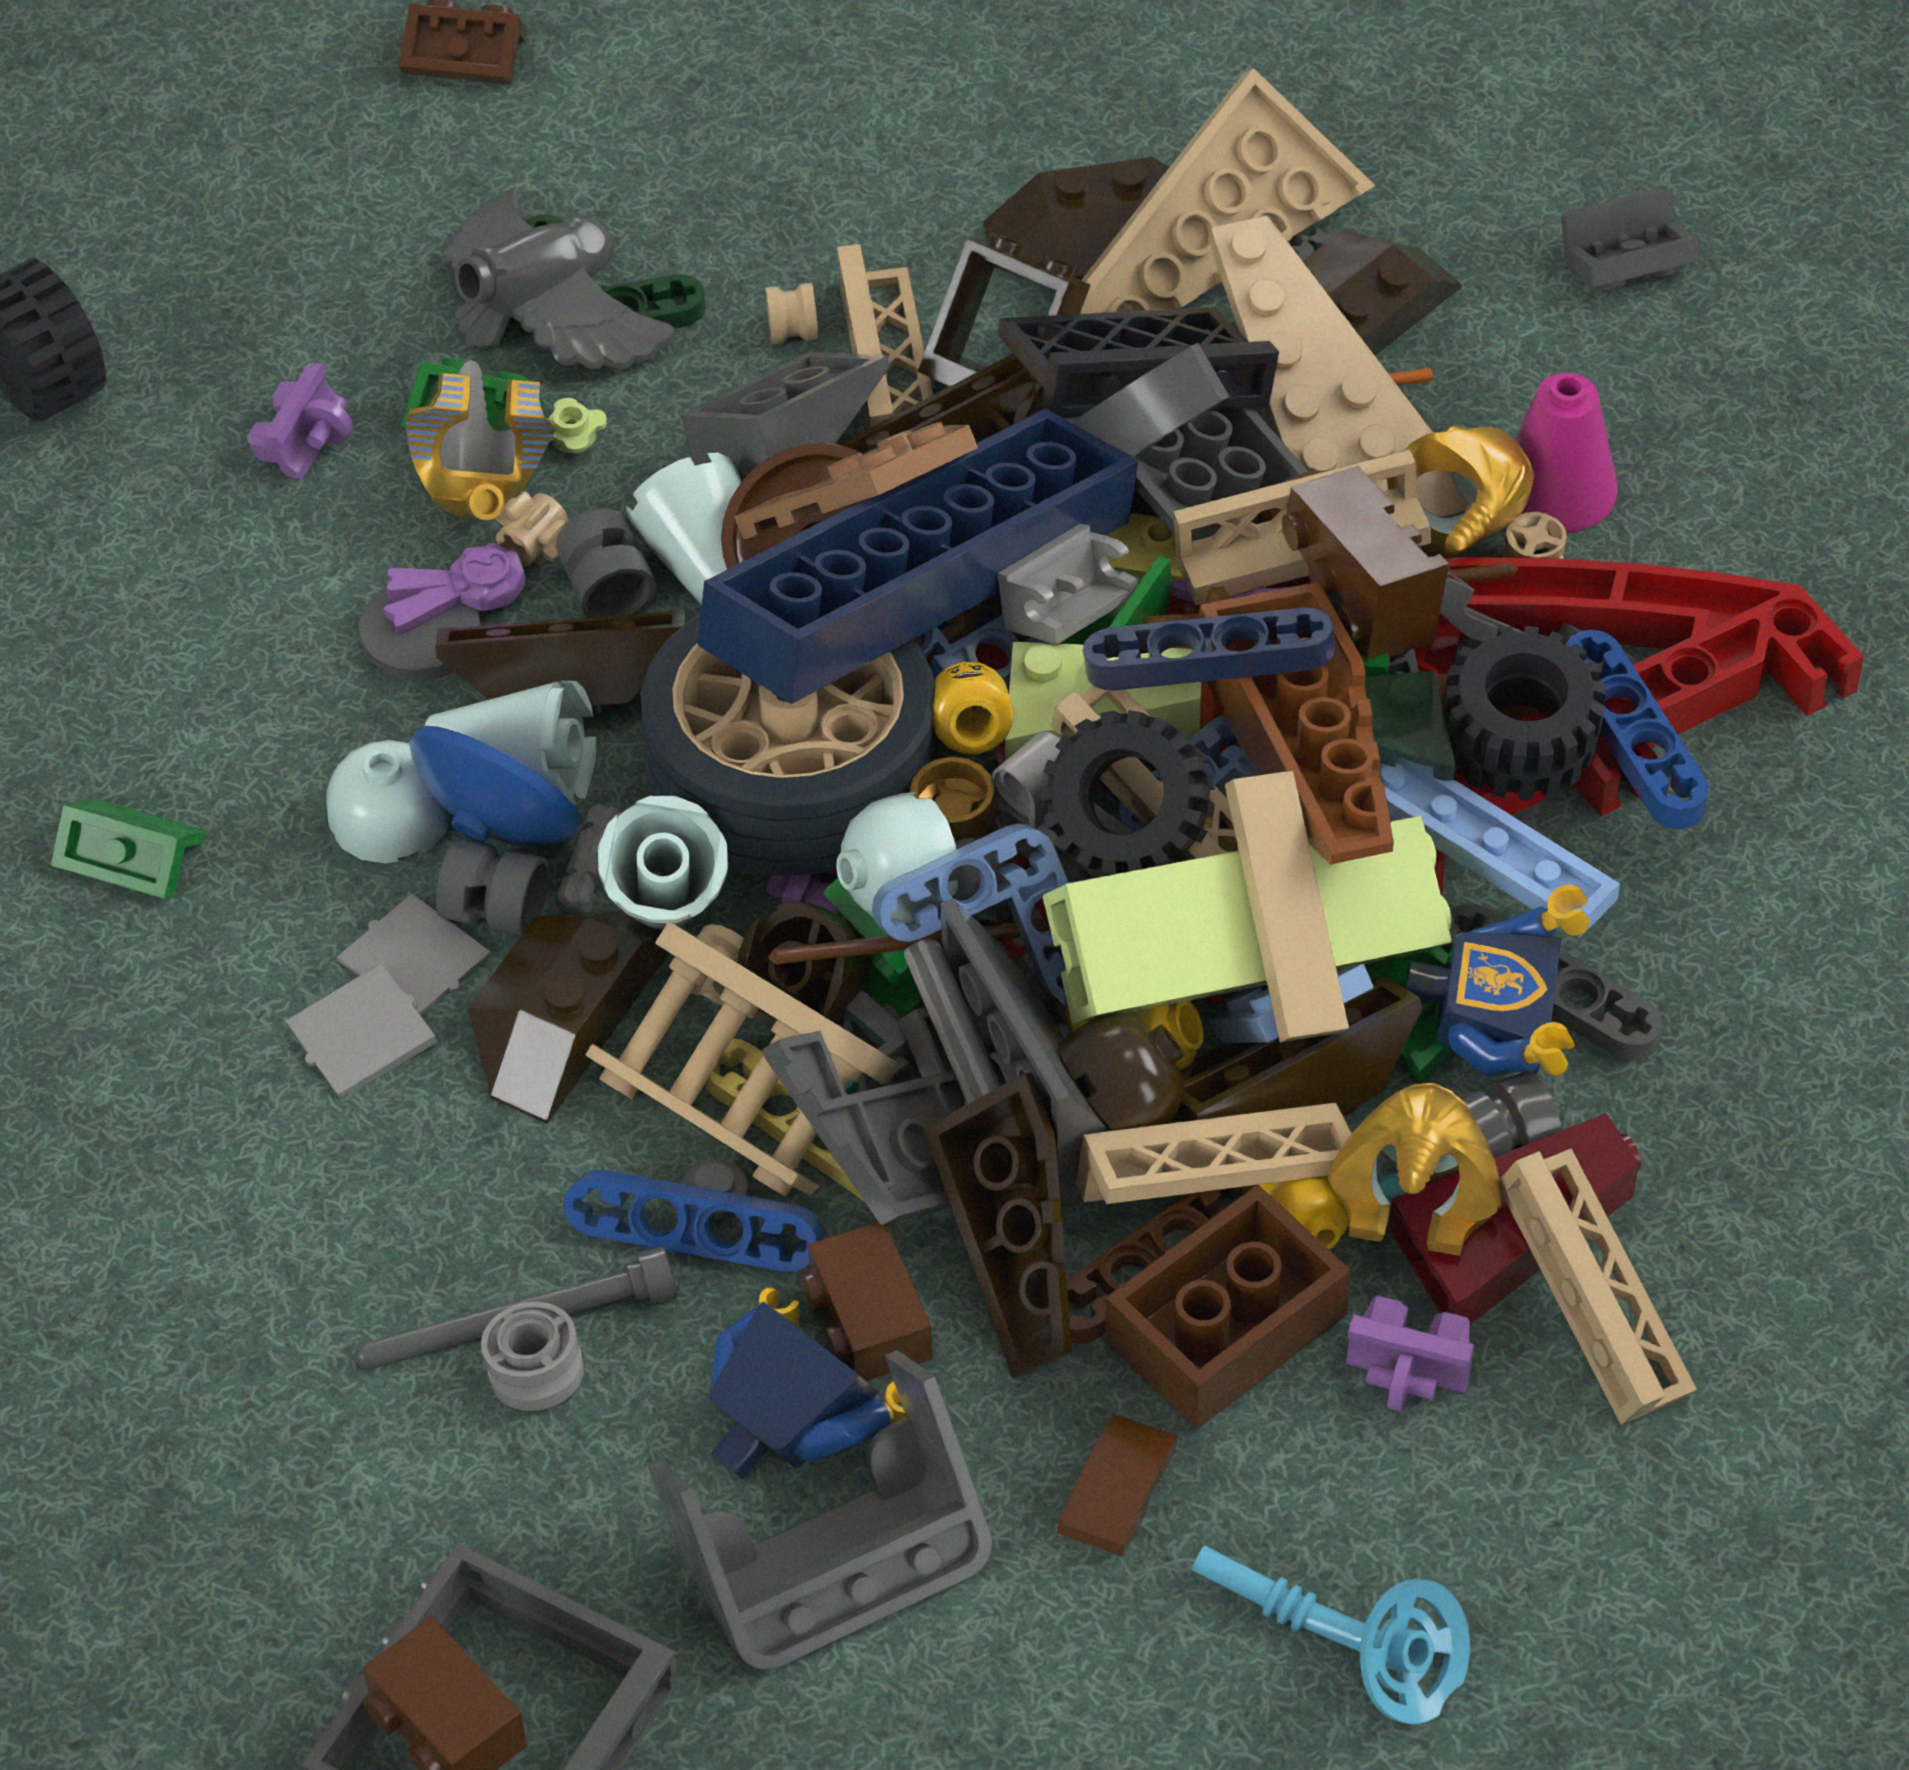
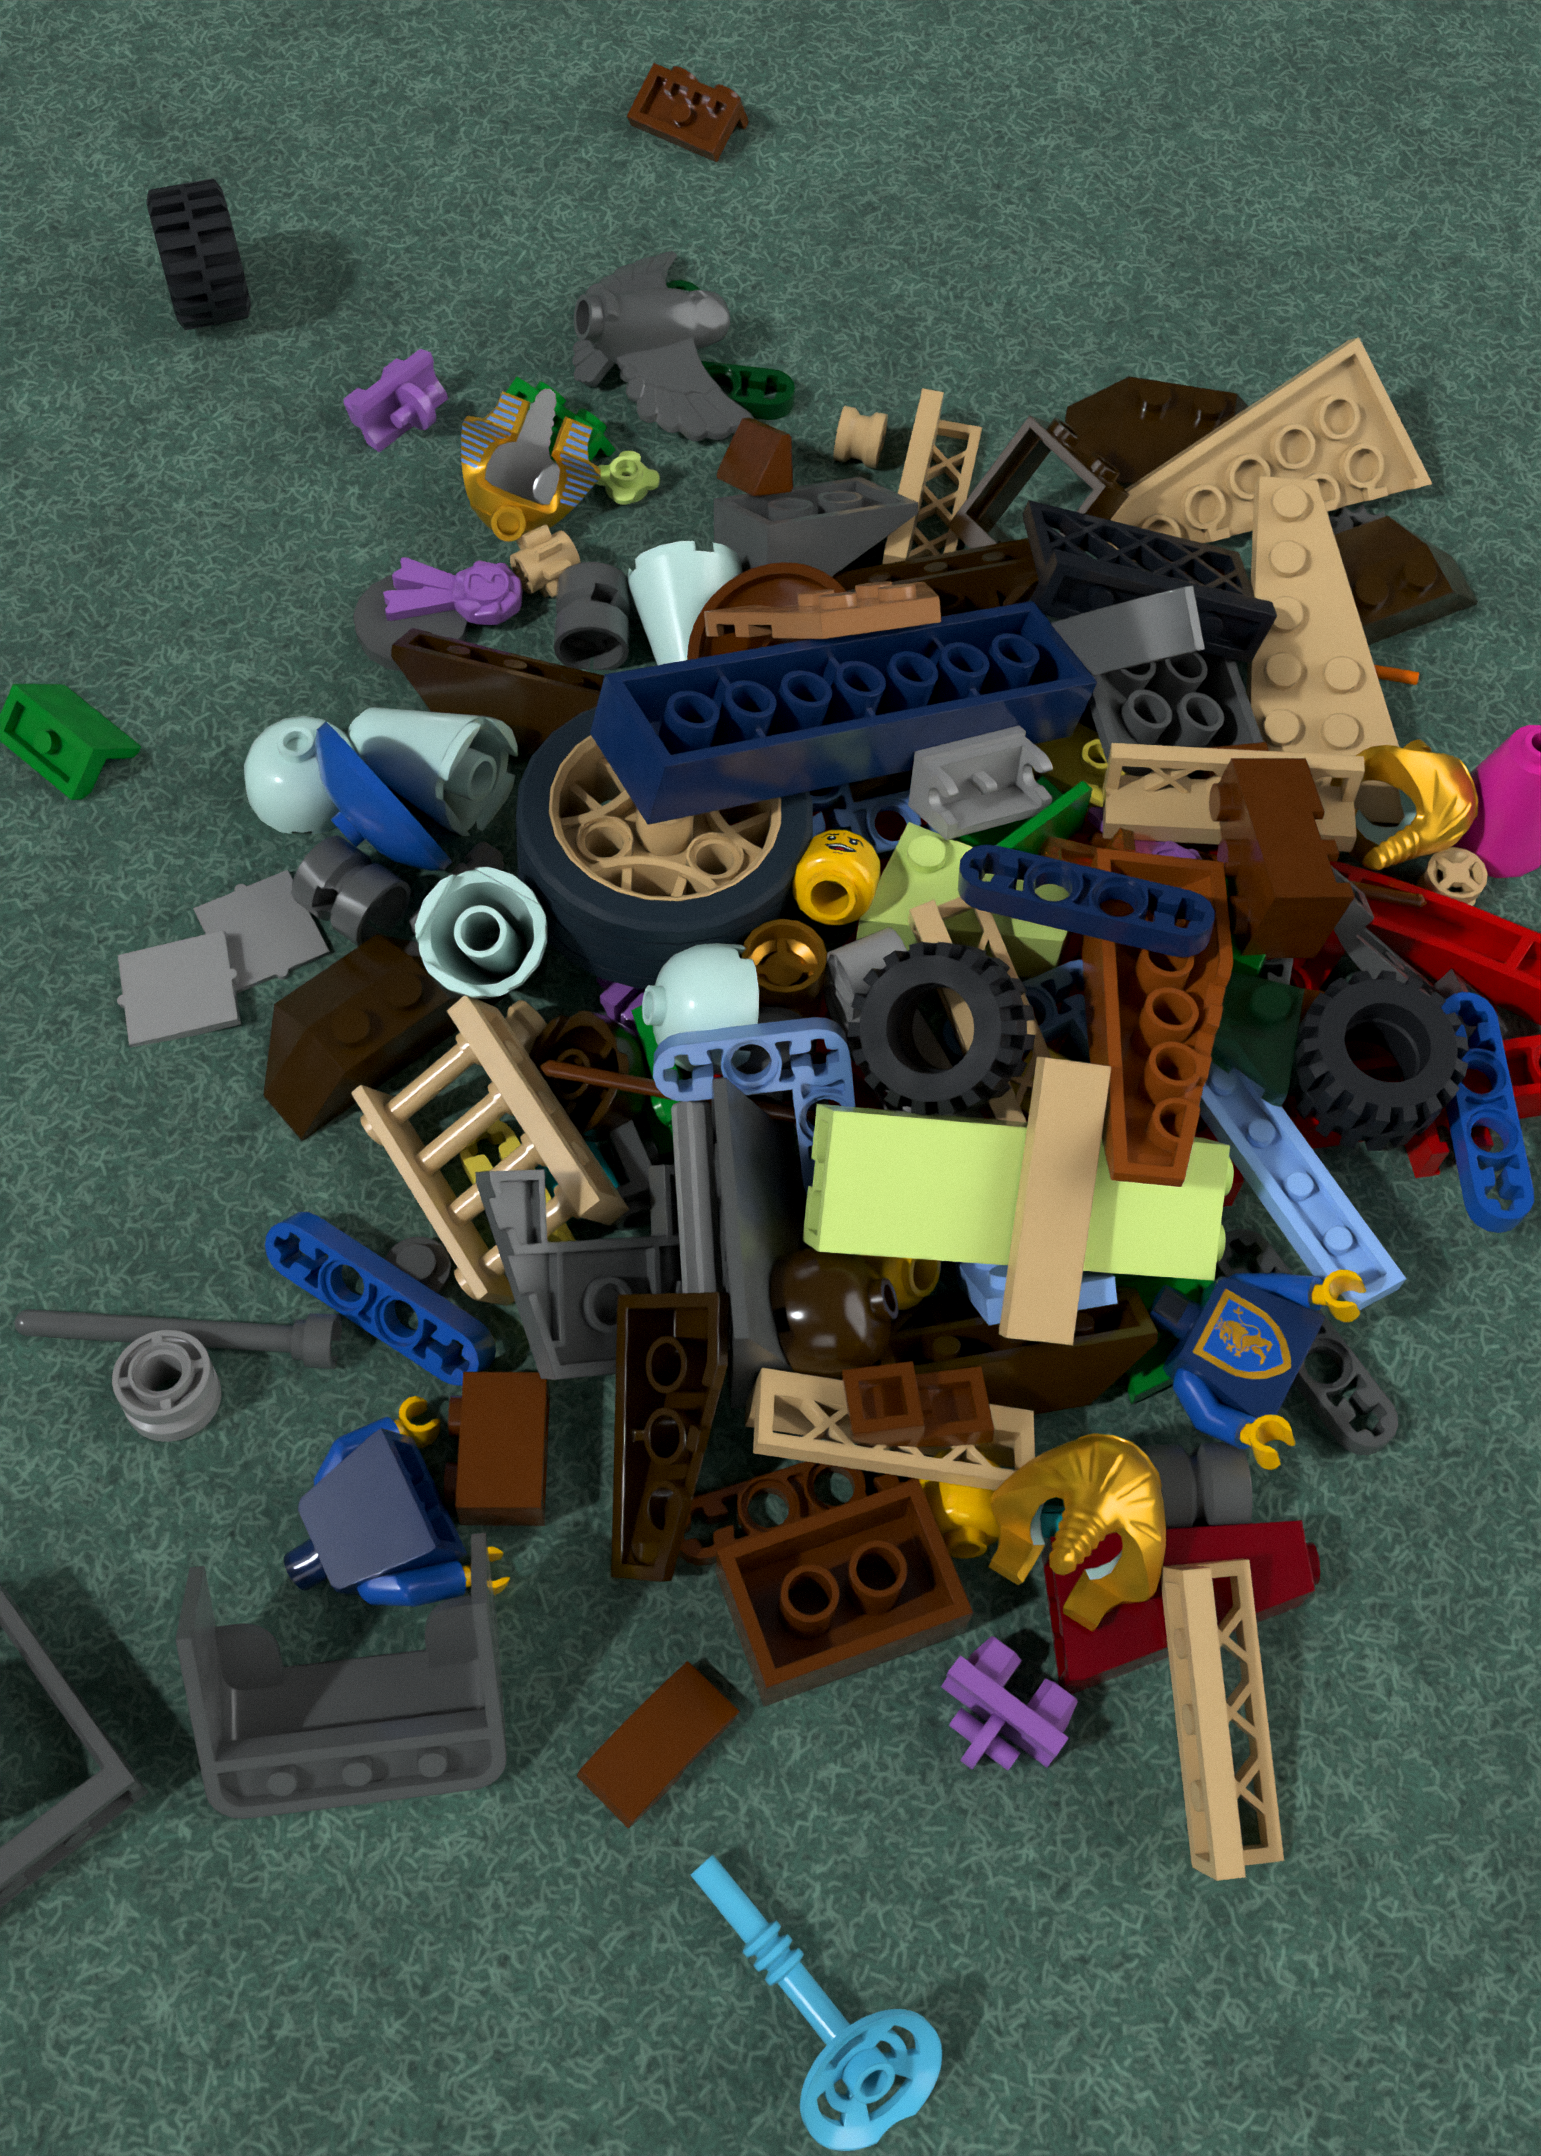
camera: 15 degrees right, 10 degrees up
(703, 364) = (758, 460): none -> reddish brown slope
(1236, 1125) = (917, 1410): none -> reddish brown slope

